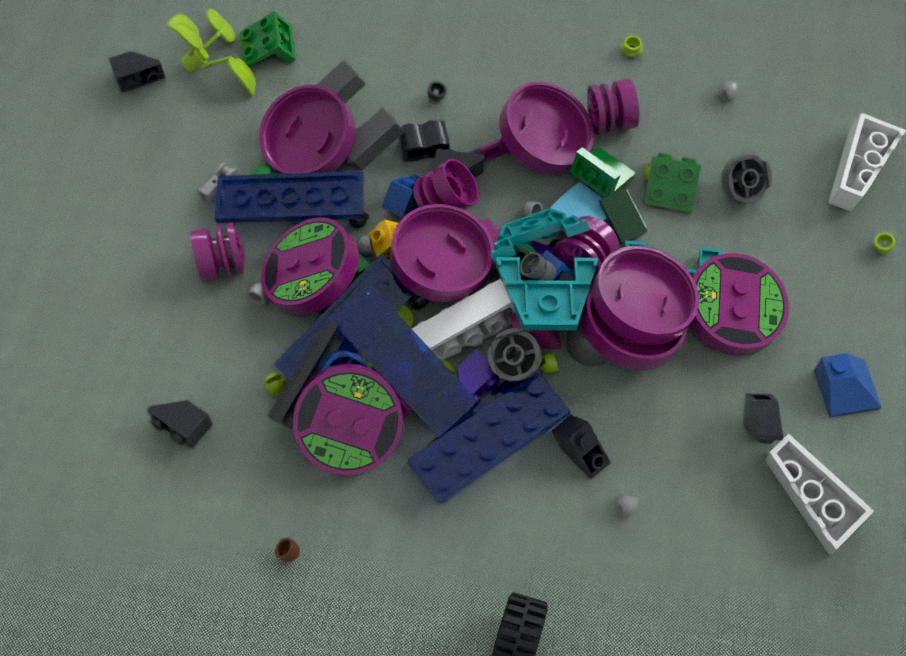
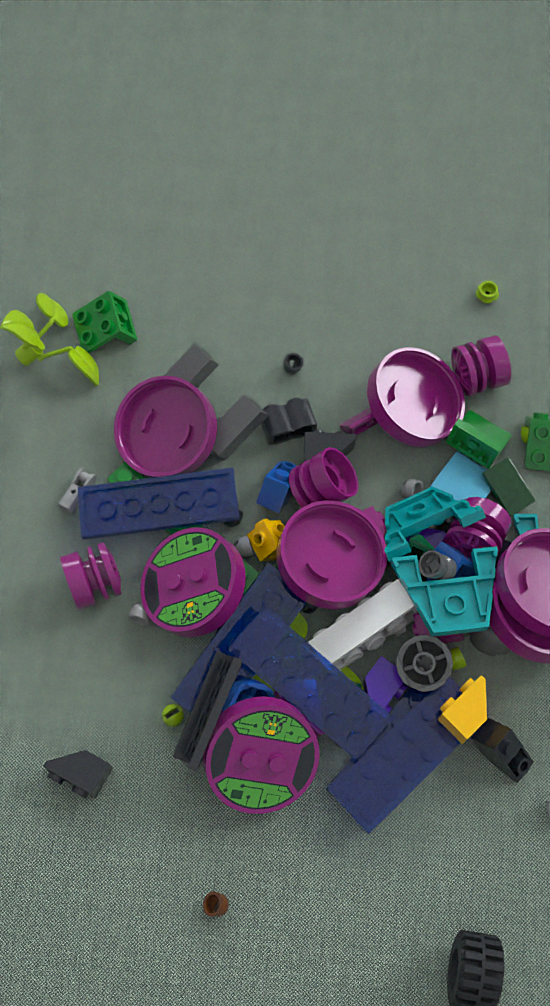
camera: 10 degrees left, 5 degrees up
(545, 402) = (467, 712): none -> yellow slope

